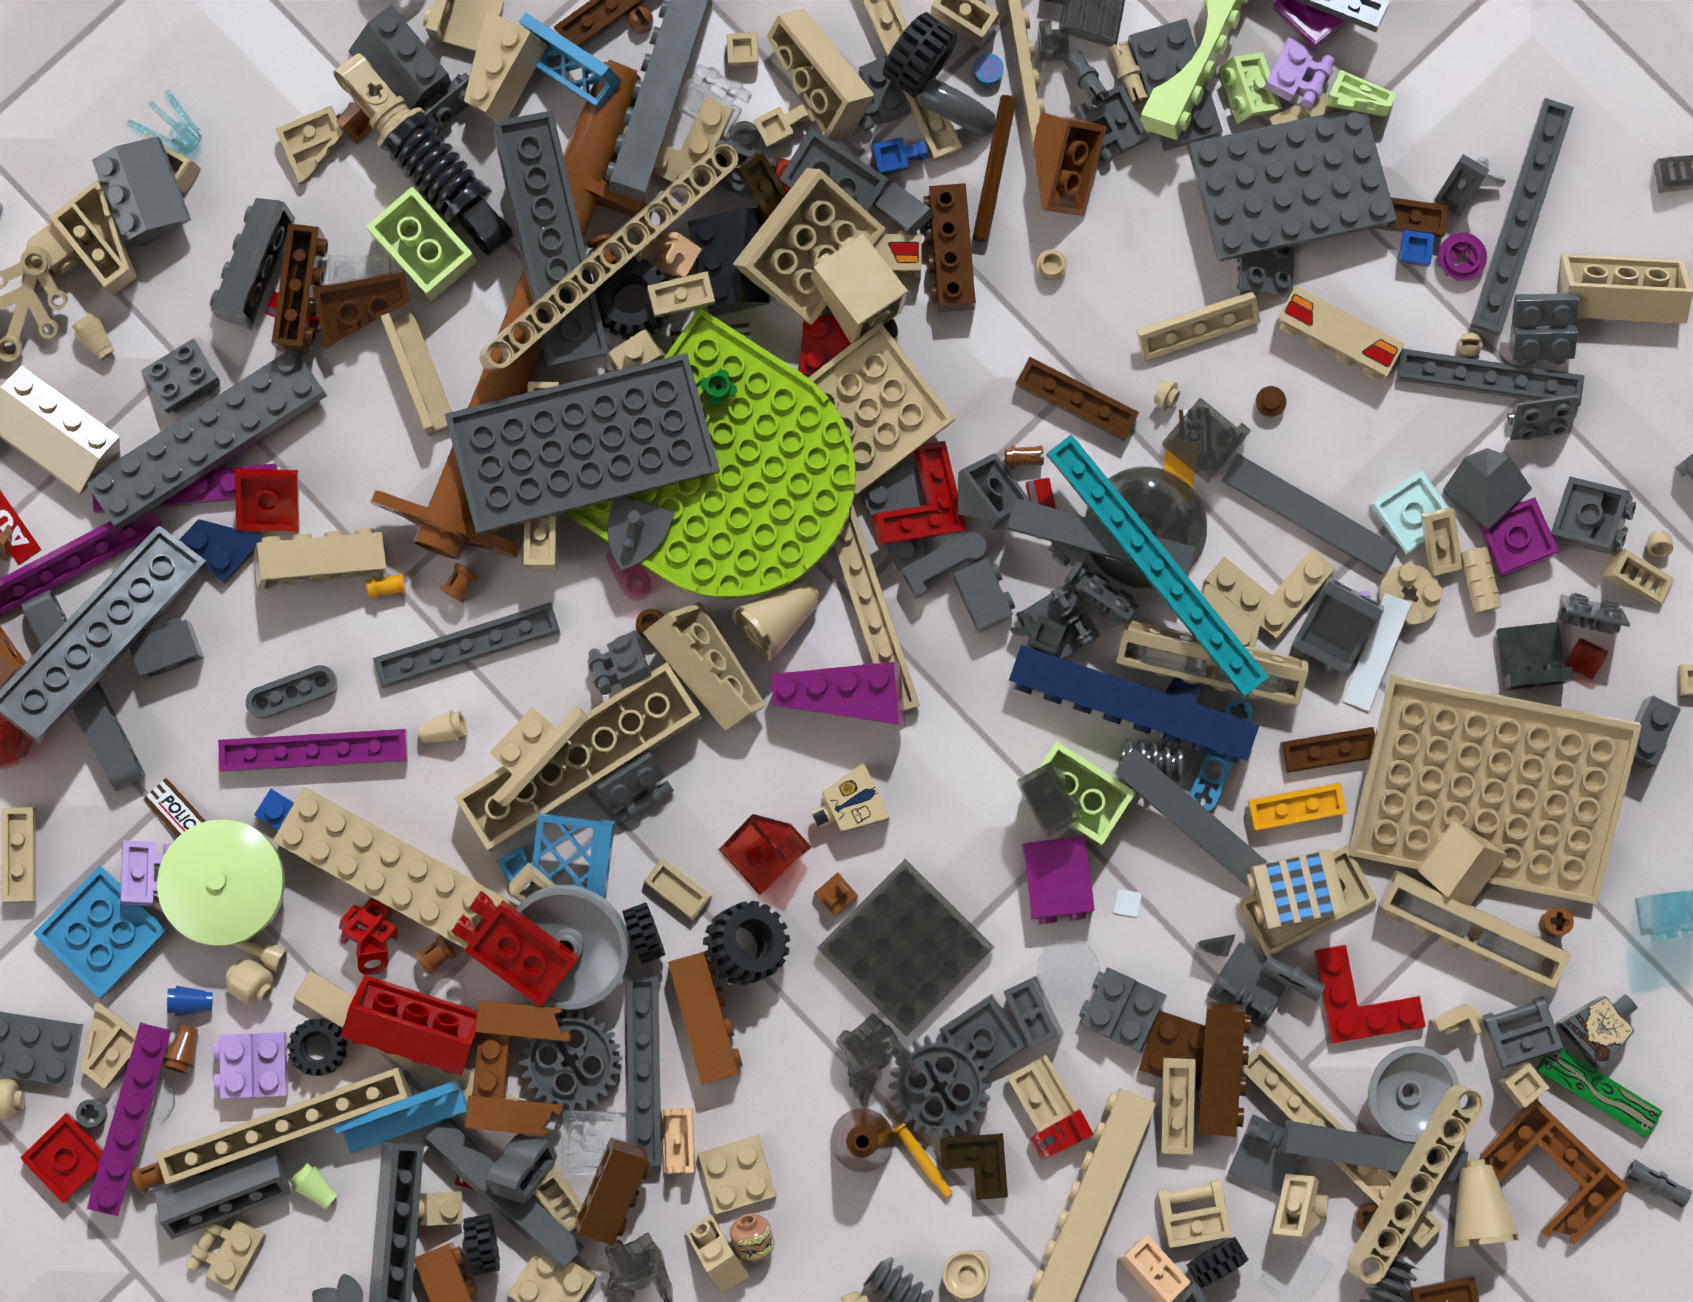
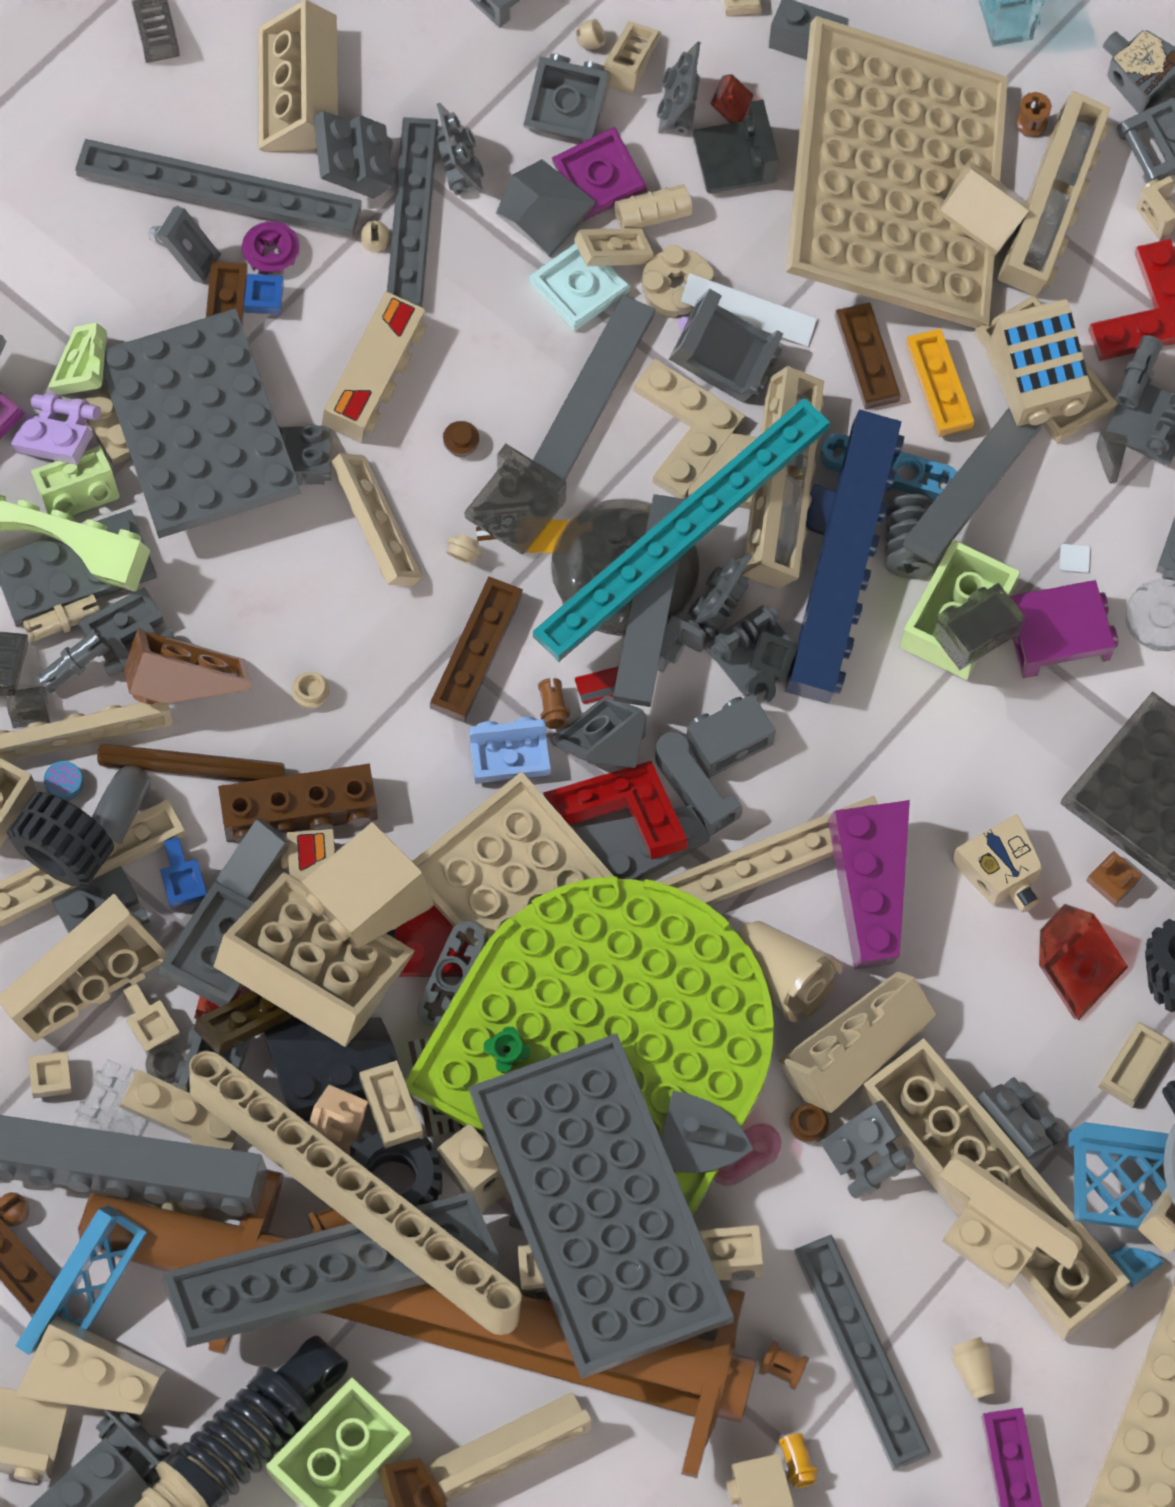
camera: 100 degrees left, 15 degrees down
(807, 354) = (456, 943): none -> dark grey beam
(982, 417) = (509, 748): none -> light blue bracket

